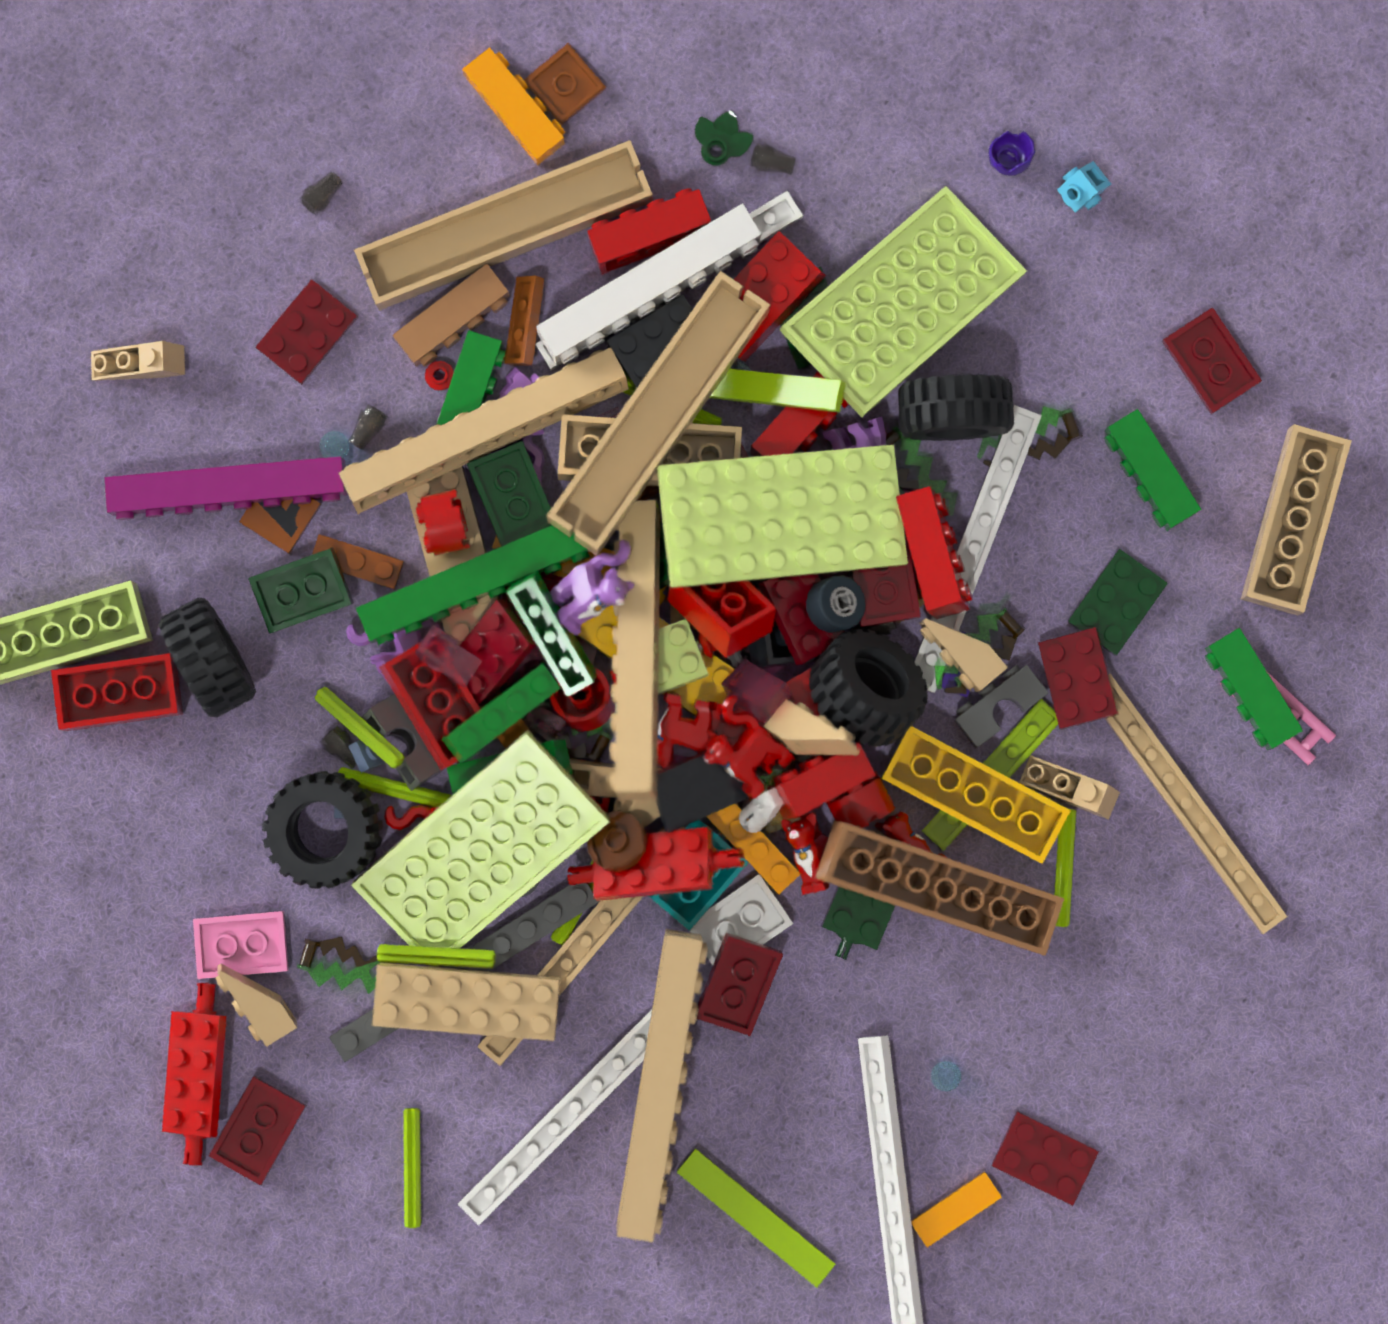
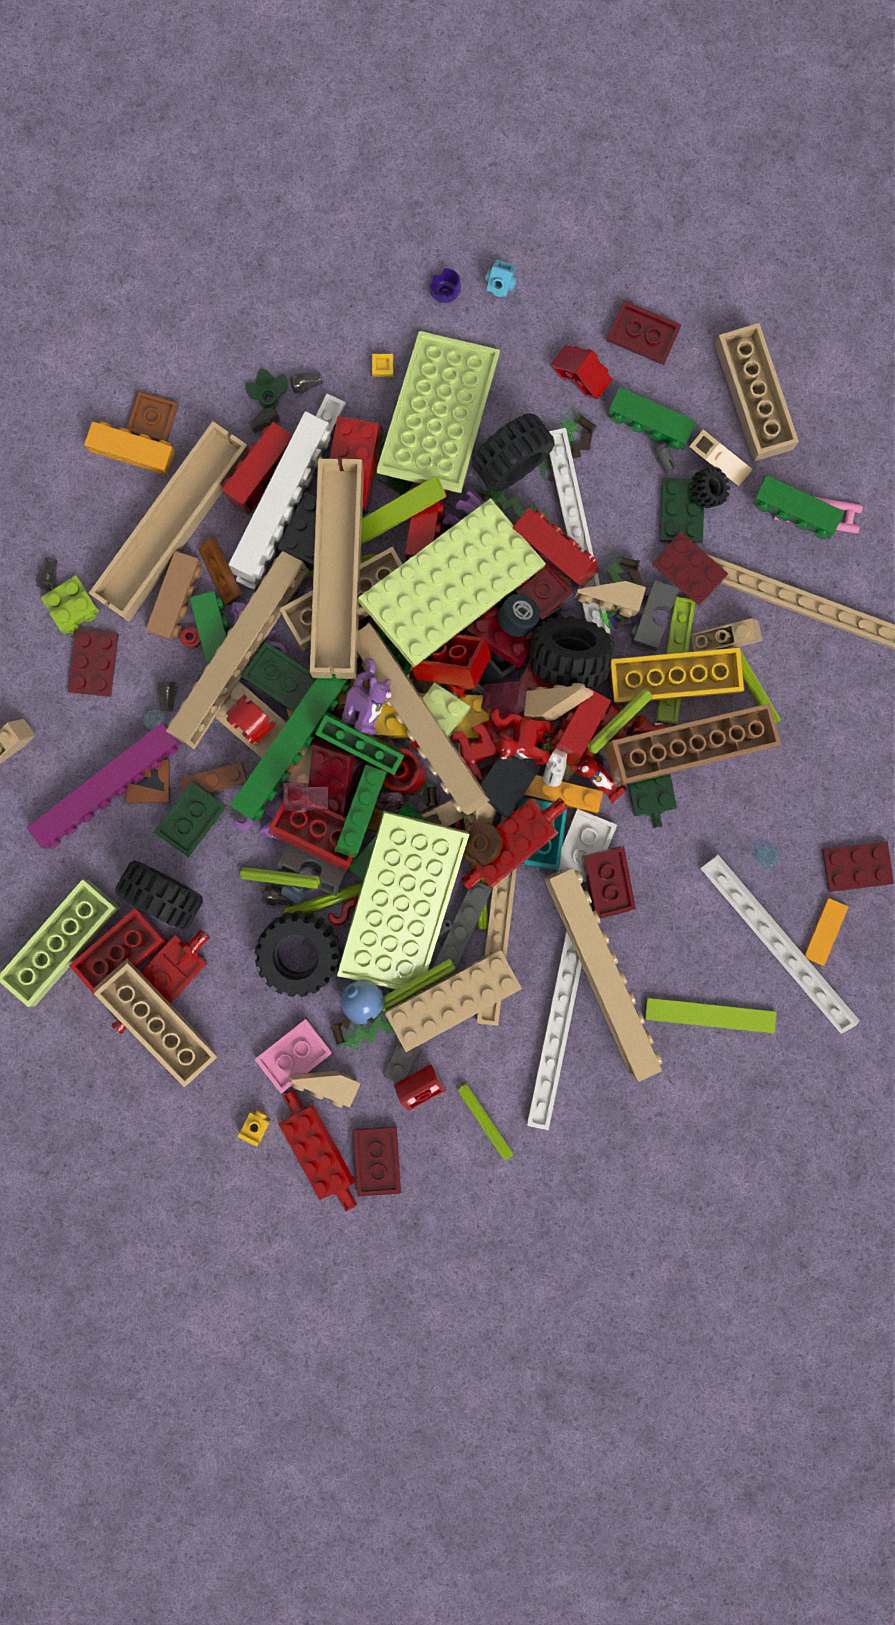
camera: 30 degrees left, 0 degrees up
(107, 802) = (155, 1022): none -> tan brick
(128, 999) = (248, 1134): none -> yellow brick
(144, 757) = (174, 968): none -> red plate
(324, 246) = (70, 605): none -> lime plate
(360, 933) = (362, 1001): none -> medium blue cylinder
(361, 1078) = (419, 1087): none -> red slope
(515, 910) = (446, 925): none -> dark grey arm
(695, 174) = (264, 419): none -> clear smoke cone
(871, 805) = (619, 721): none -> lime axle
(876, 199) = (382, 365): none -> yellow plate
(1107, 359) = (583, 369): none -> red brick
(1138, 527) = (665, 458): none -> dark grey pin
(1178, 600) = (718, 485): none -> black tyre
(1202, 569) = (721, 457): none -> tan slope

